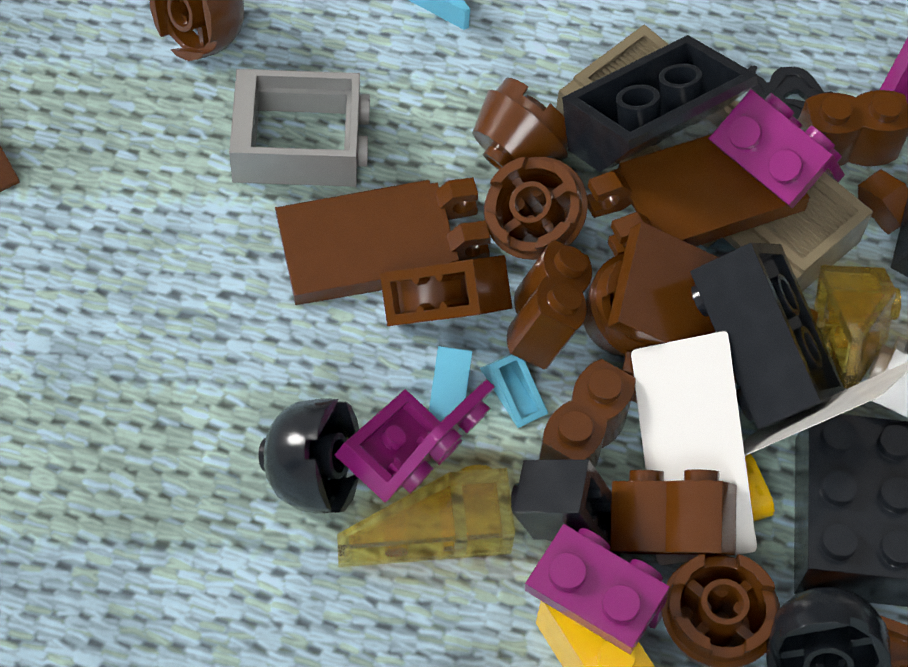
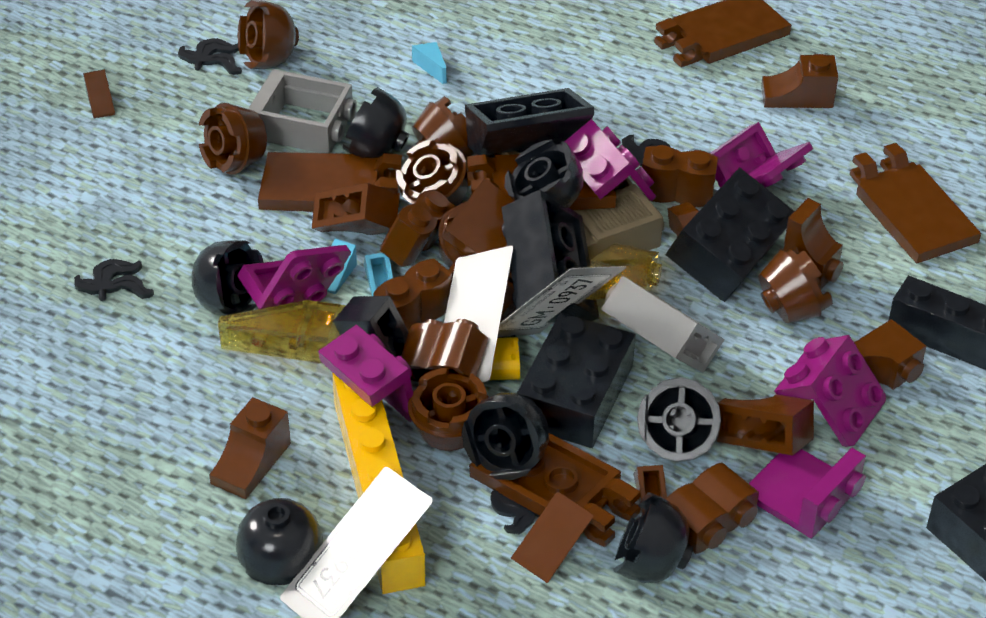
camera: 20 degrees right, 15 degrees down
(108, 40) = (204, 56): none -> black piece
(117, 475) = (104, 274): none -> black piece
(223, 203) = (232, 138): none -> reddish brown cone
(425, 140) = (378, 127): none -> black cylinder
(729, 203) = (547, 169): none -> black cylinder

